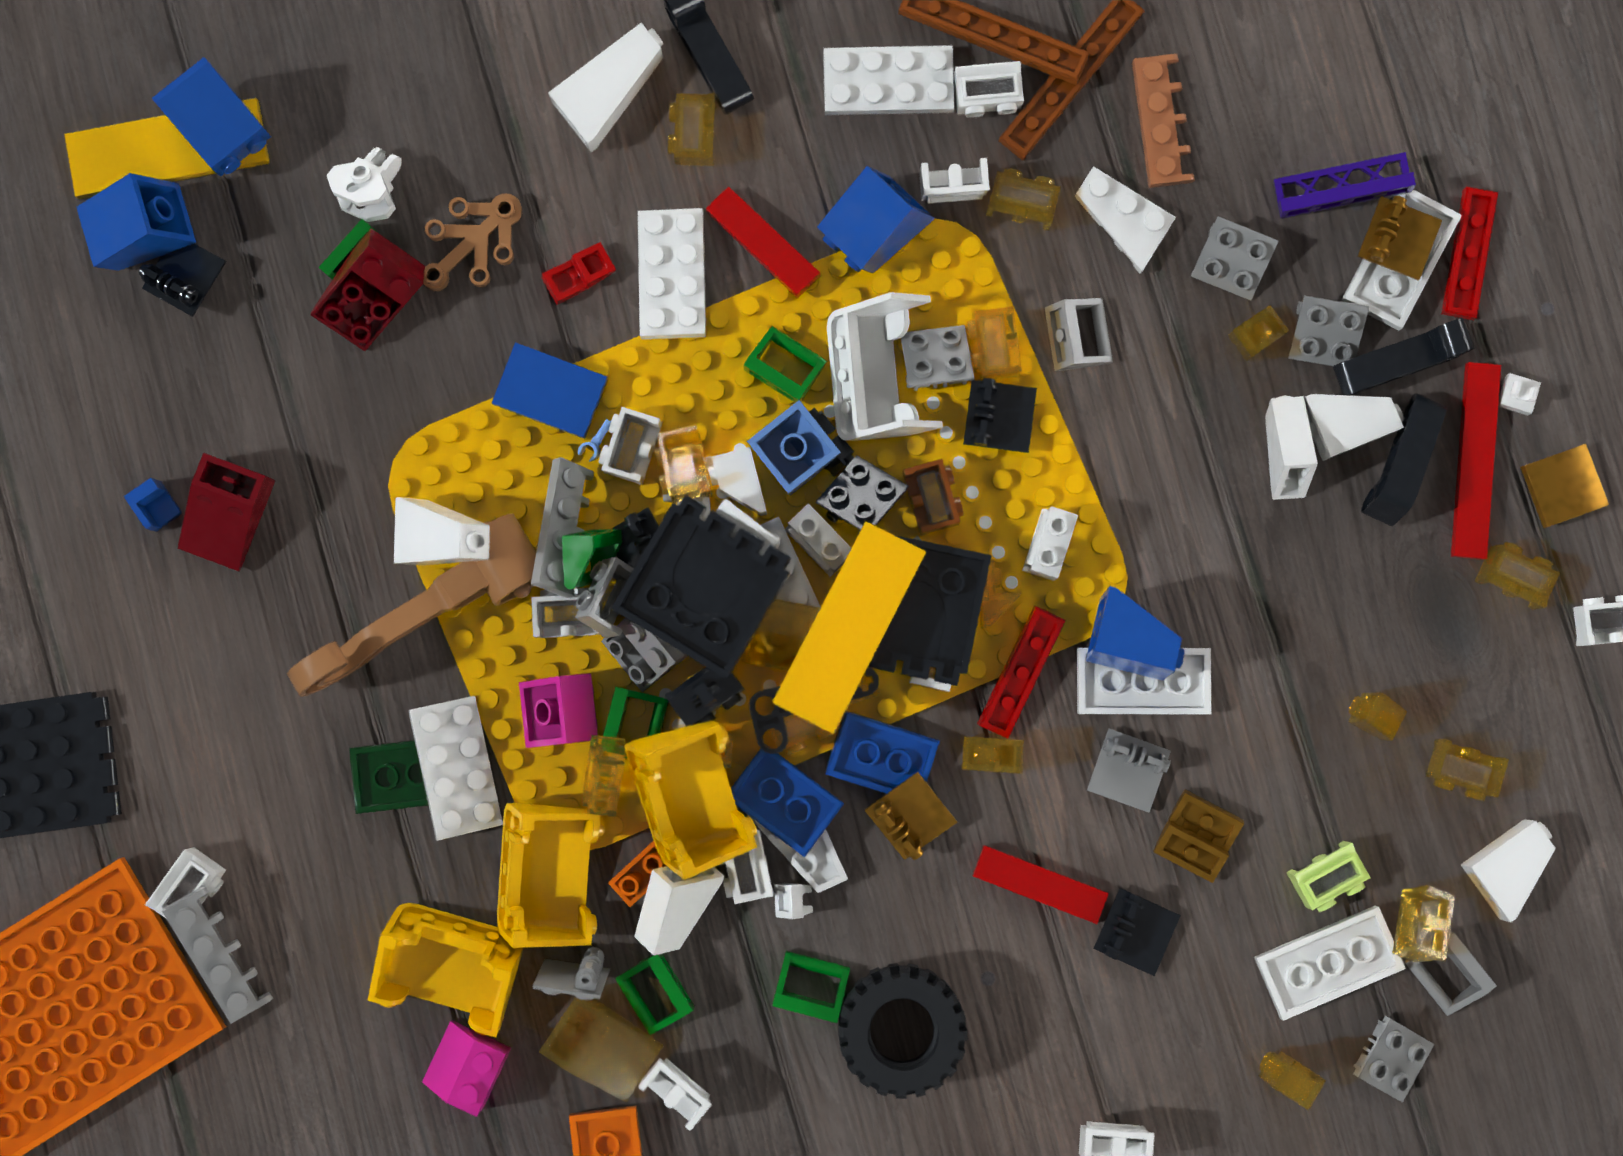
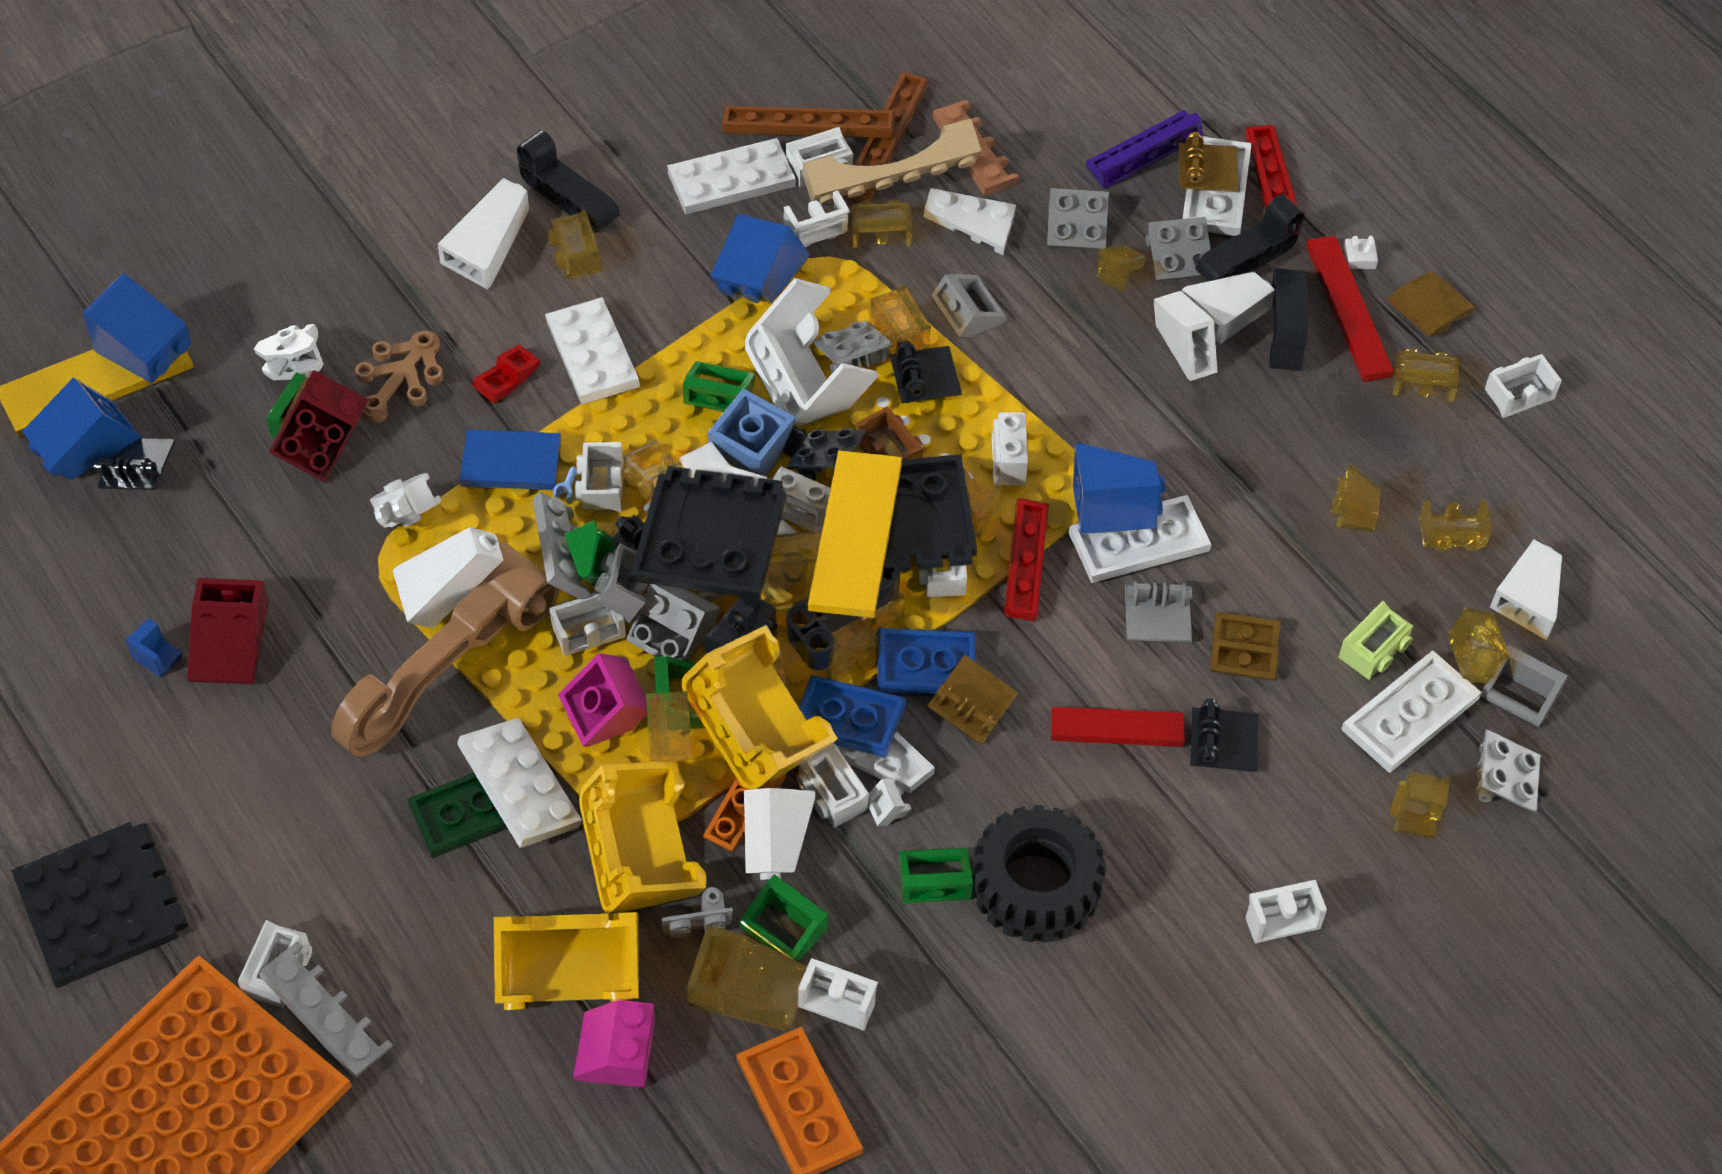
camera: 20 degrees left, 30 degrees down
(426, 419) = (403, 501): none -> white hinge
(763, 242) = (665, 307): red tile -> none
(993, 755) = (1029, 625): clear yellow slope -> none
(1132, 132) = (955, 147): none -> tan arch

